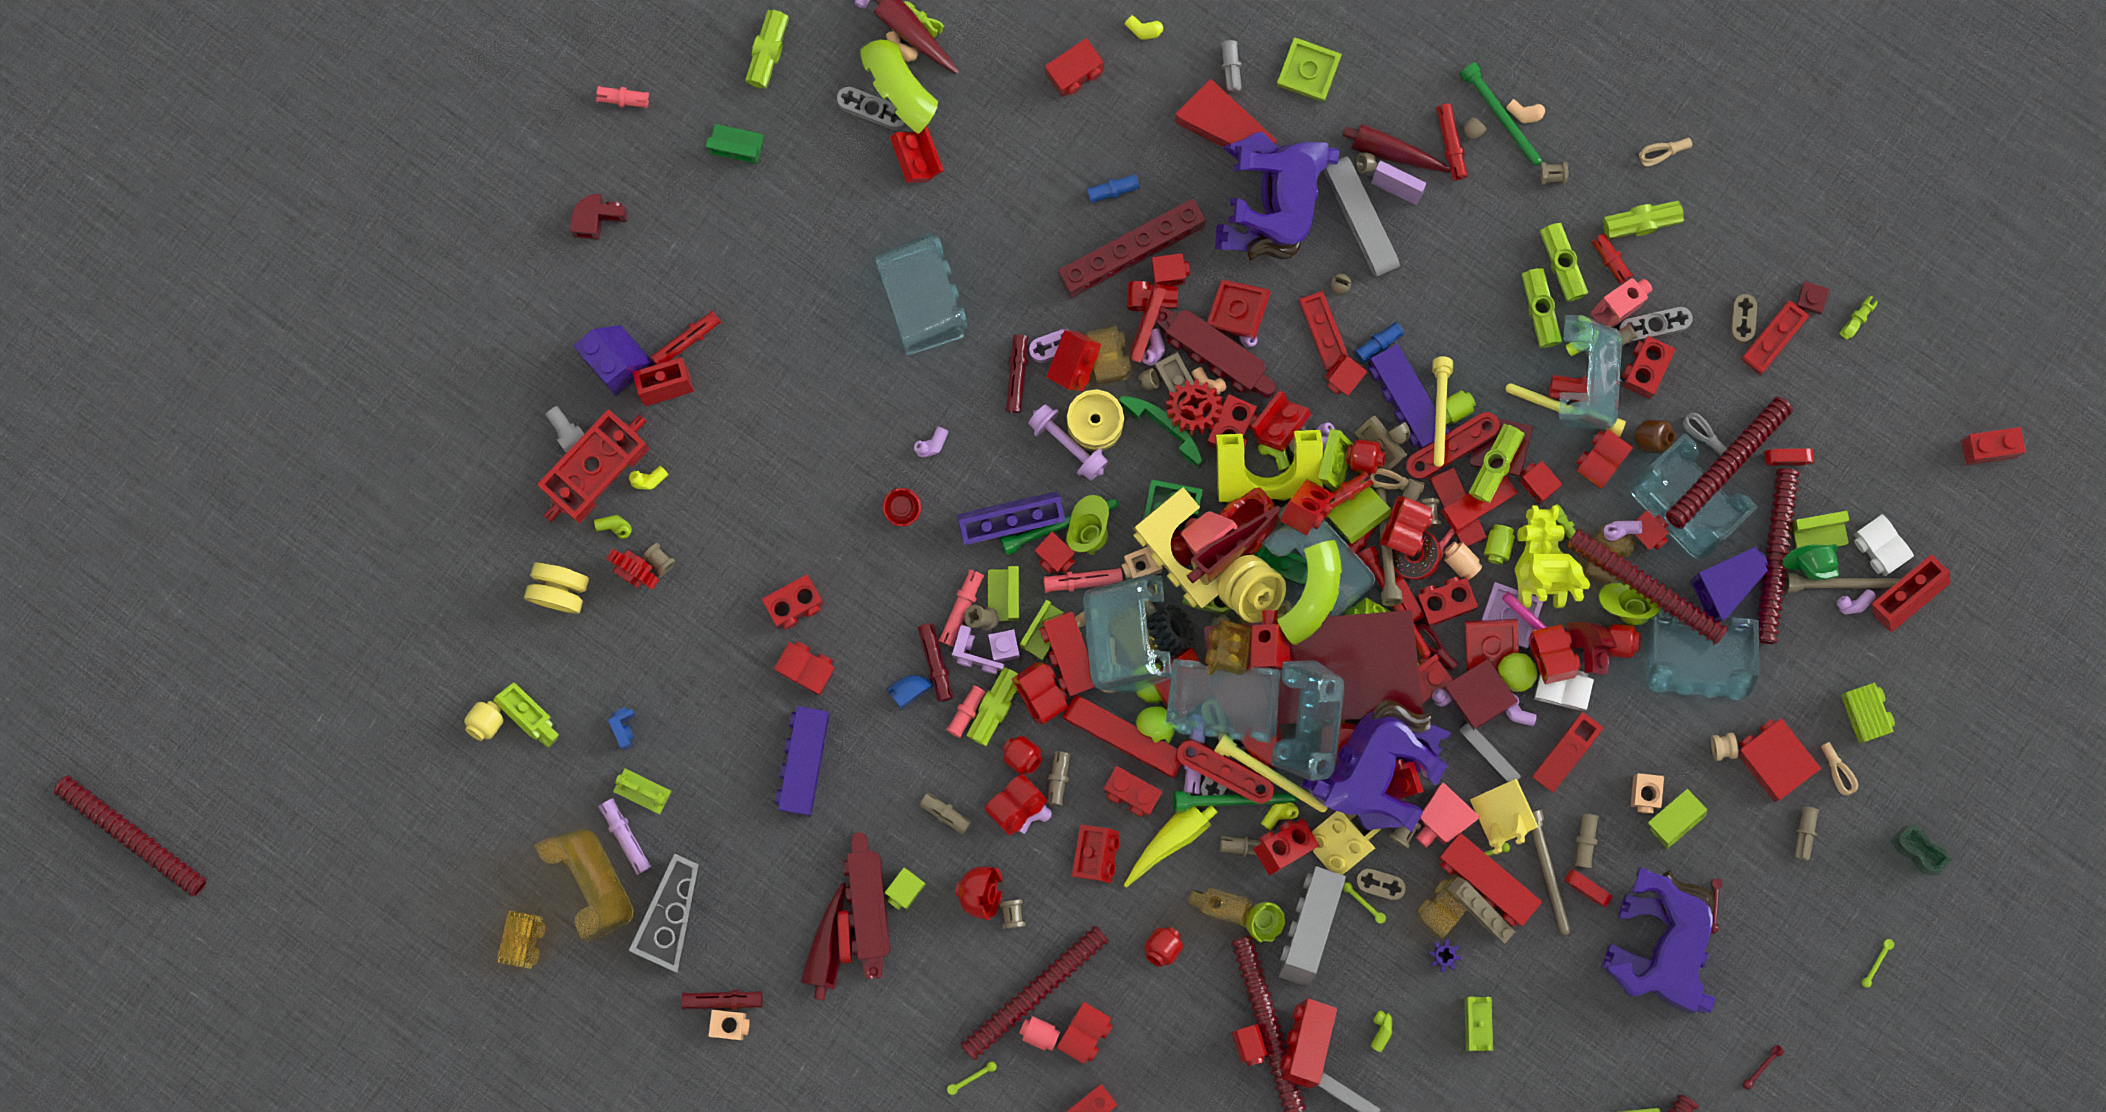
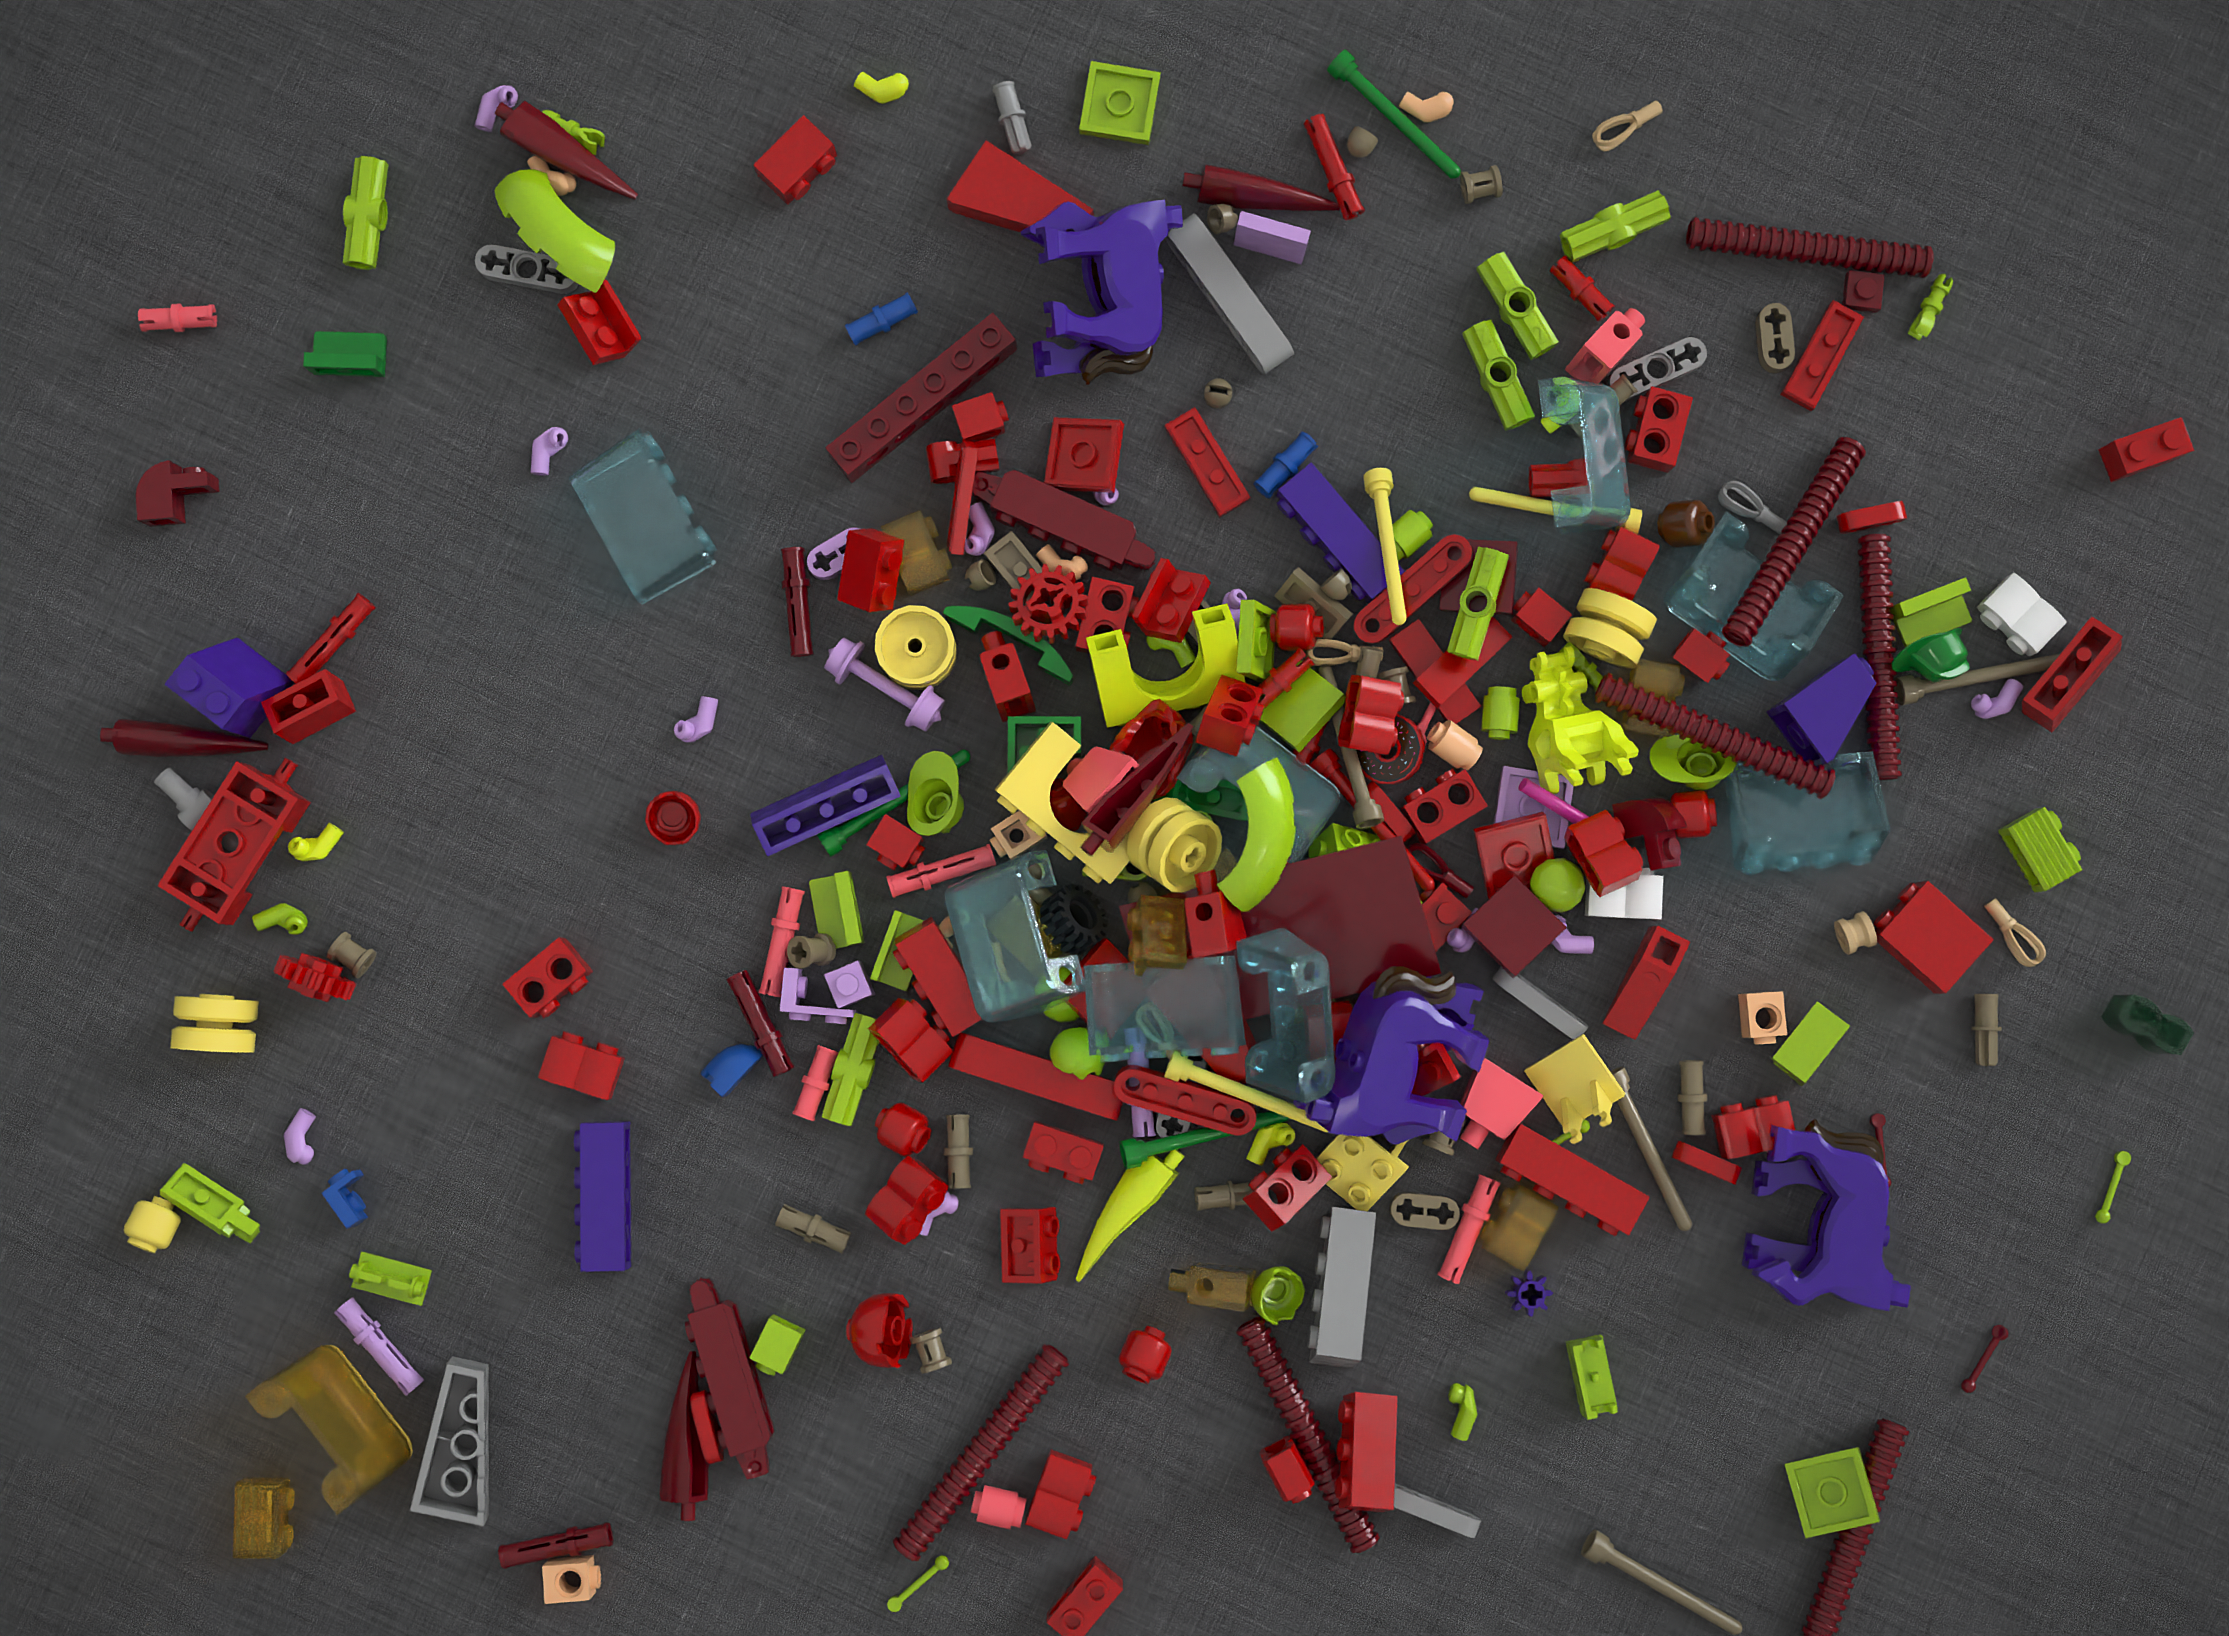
camera: 15 degrees left, 5 degrees up
(563, 388) = (174, 740): none -> dark red piece
(593, 681) = (295, 1138): none -> lavender arm
(861, 233) = (546, 446): none -> lavender arm
(1154, 453) = (1007, 685): none -> red torso
(1344, 375) = (1246, 519): red brick -> none
(1379, 917) = (1431, 1255): lime hinge -> none
(1410, 902) = (1469, 1228): none -> coral pin
(1481, 910) = (1568, 1223): dark tan piece -> none
(1587, 498) = (1610, 628): none -> light yellow wheel
(1621, 528) = (1661, 662): lavender arm -> none
(1621, 870) = (1748, 1129): none -> red brick
(1780, 260) = (1810, 247): none -> dark red piece

